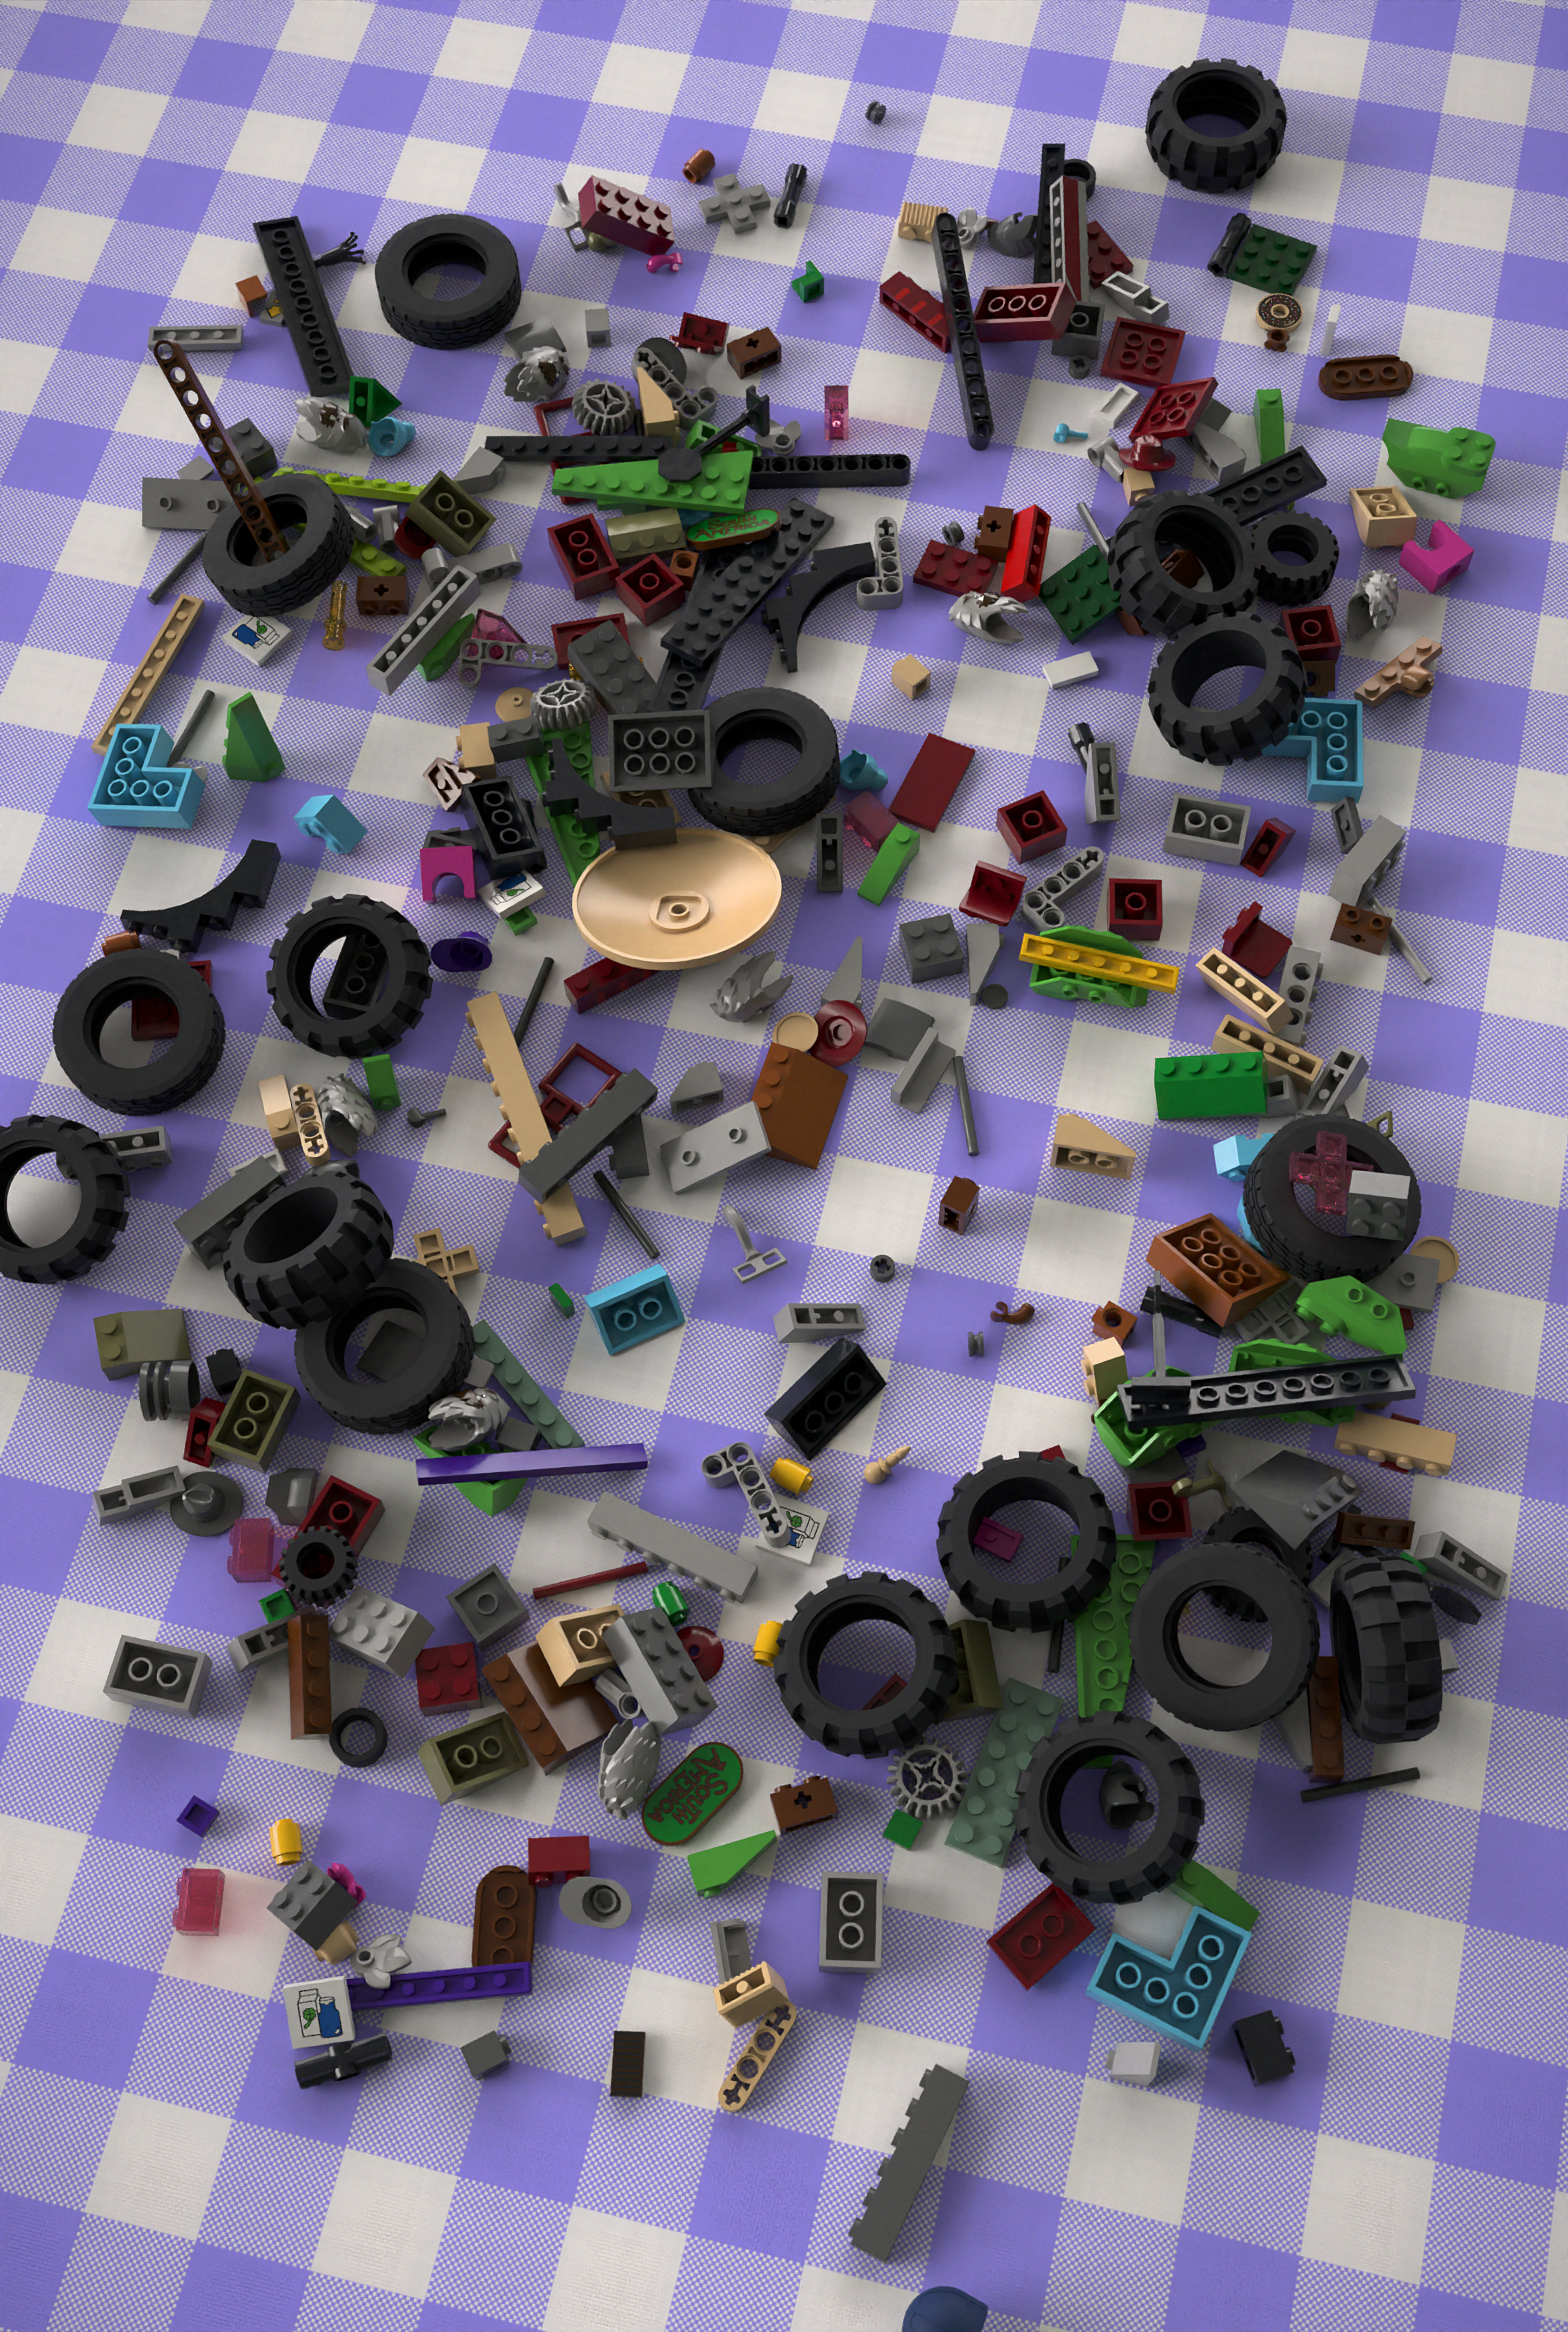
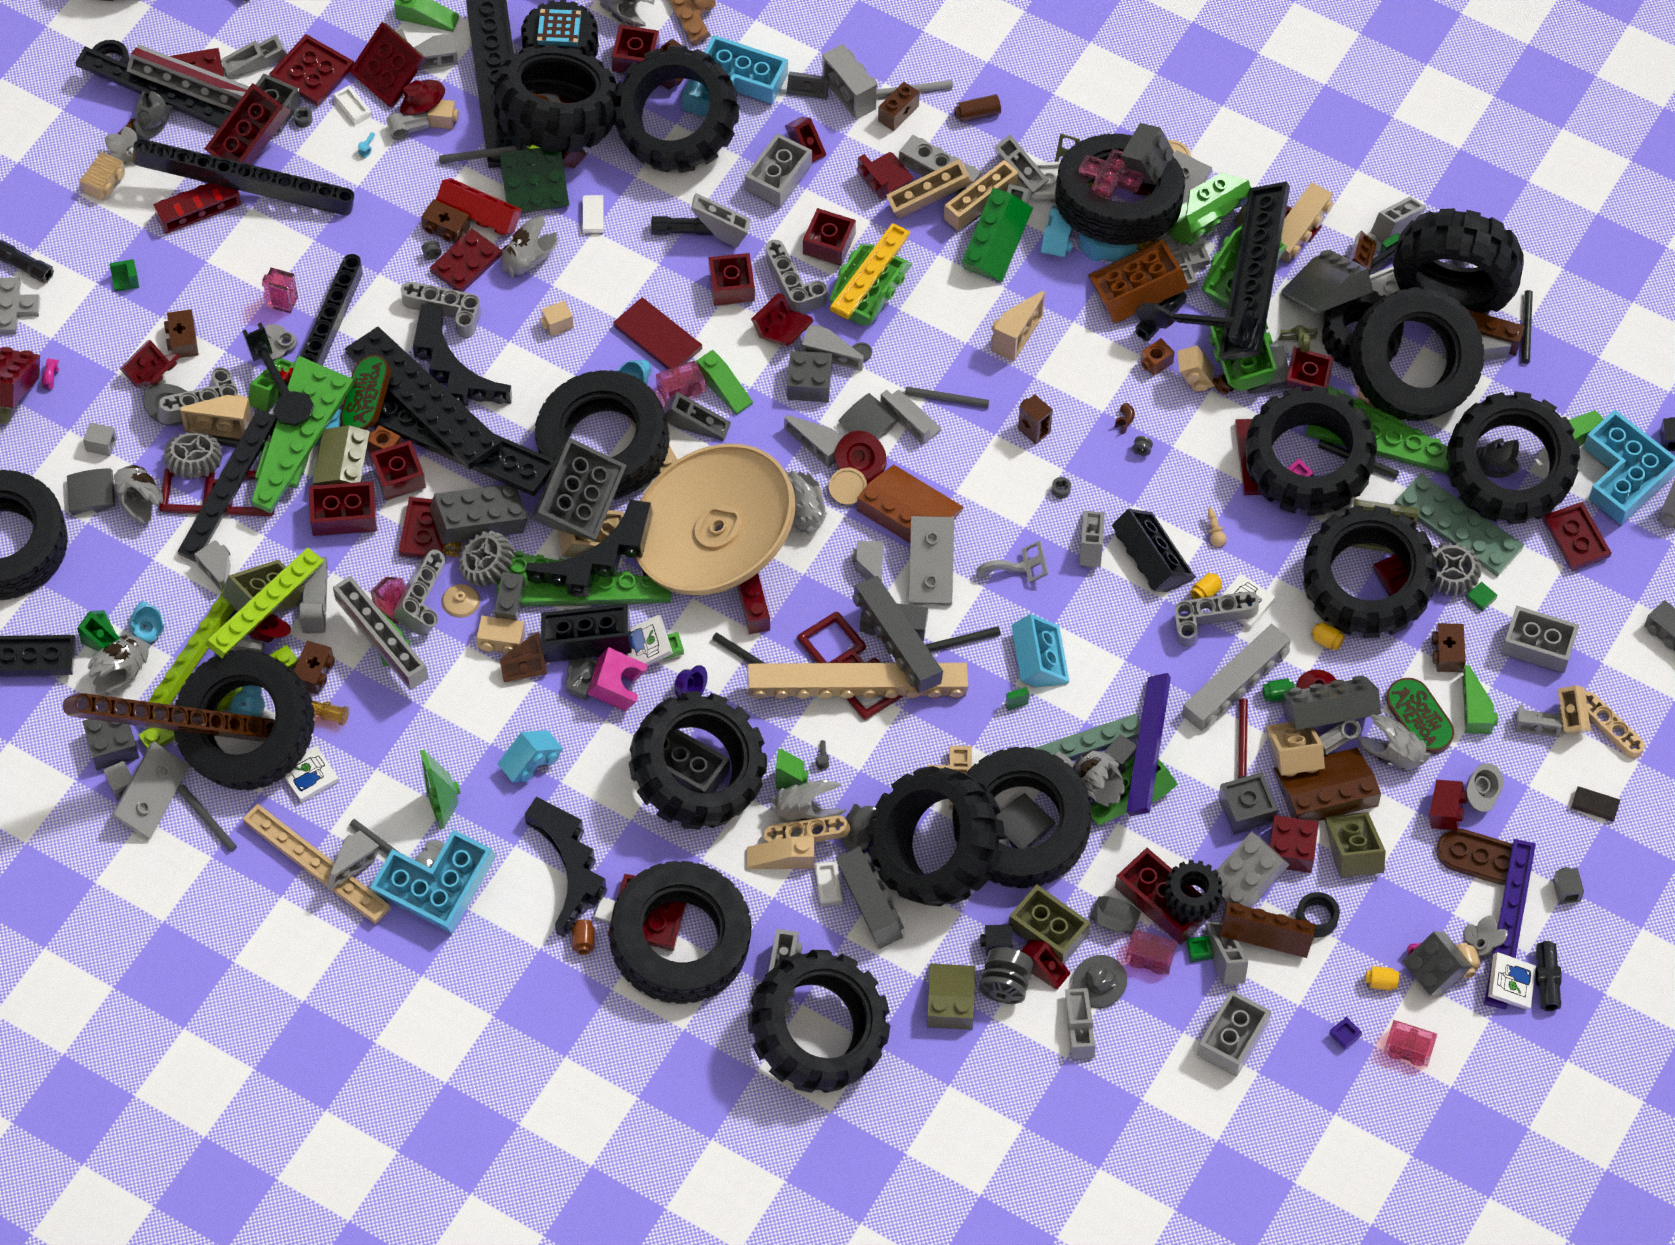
camera: 75 degrees left, 5 degrees down
(153, 698) = (355, 854): none -> light grey slope
(415, 510) = (264, 602): none -> lime plate
(1289, 542) = (559, 27): none -> tile
(1401, 1016) = (978, 108): none -> reddish brown brick

